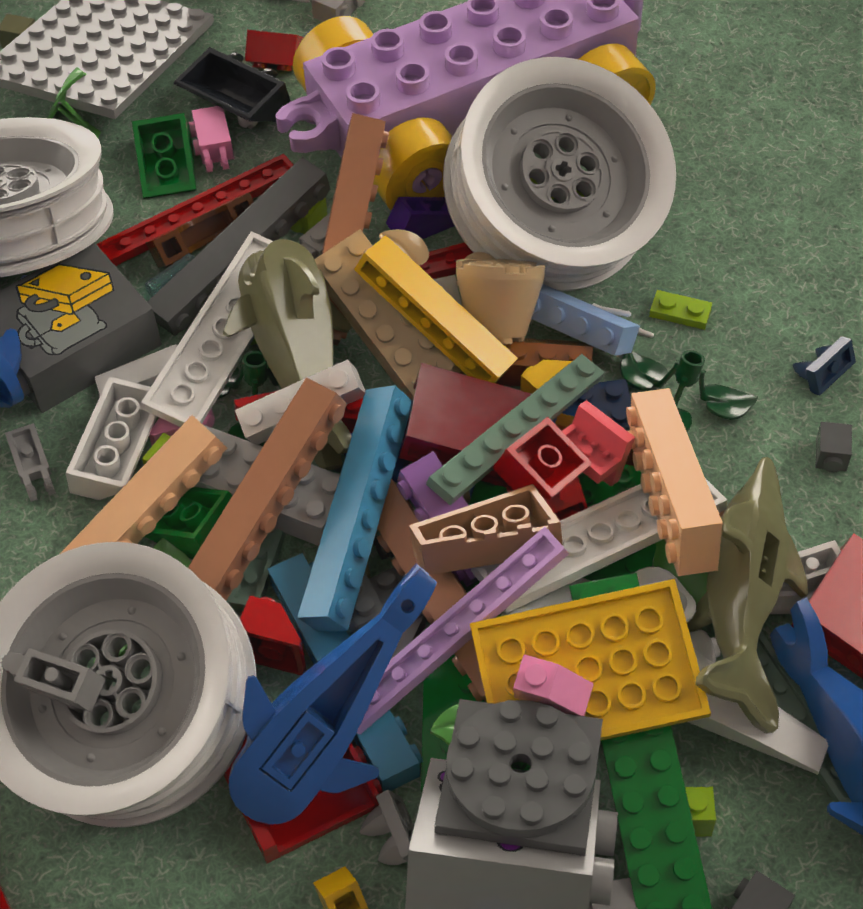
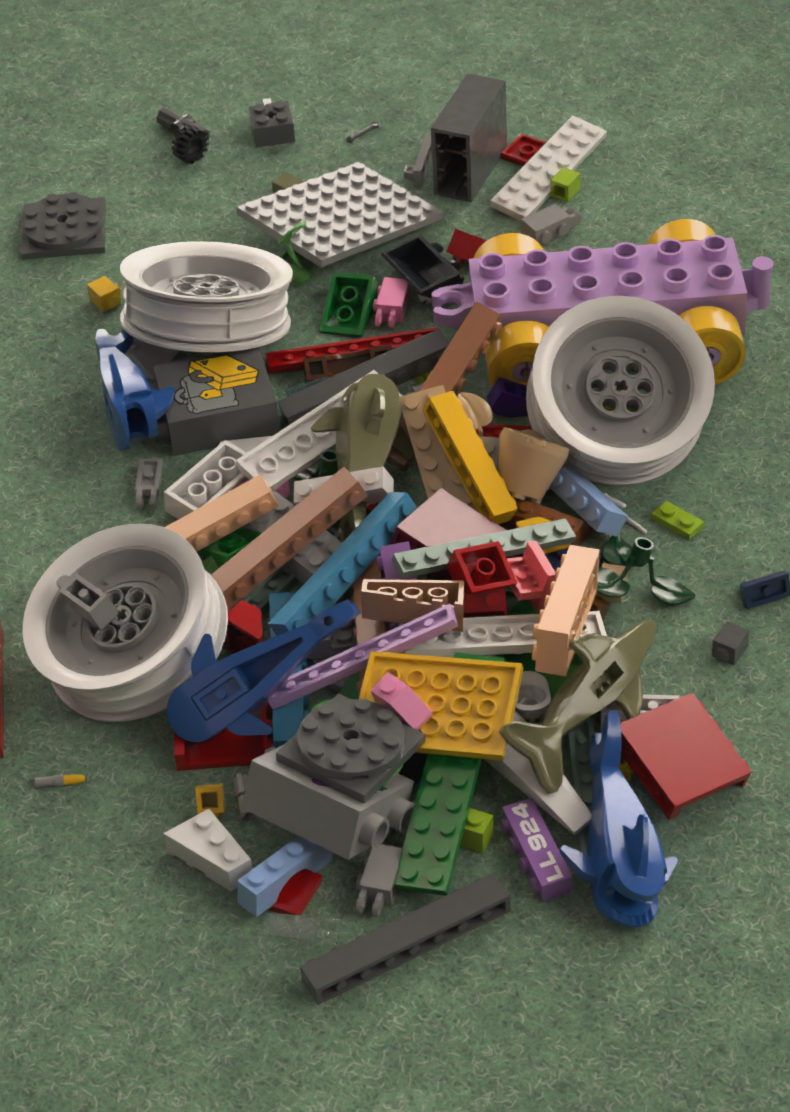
camera: 25 degrees right, 10 degrees down
(377, 871) = (240, 784): none -> light grey axle
(779, 810) = (536, 850): none -> medium lavender brick

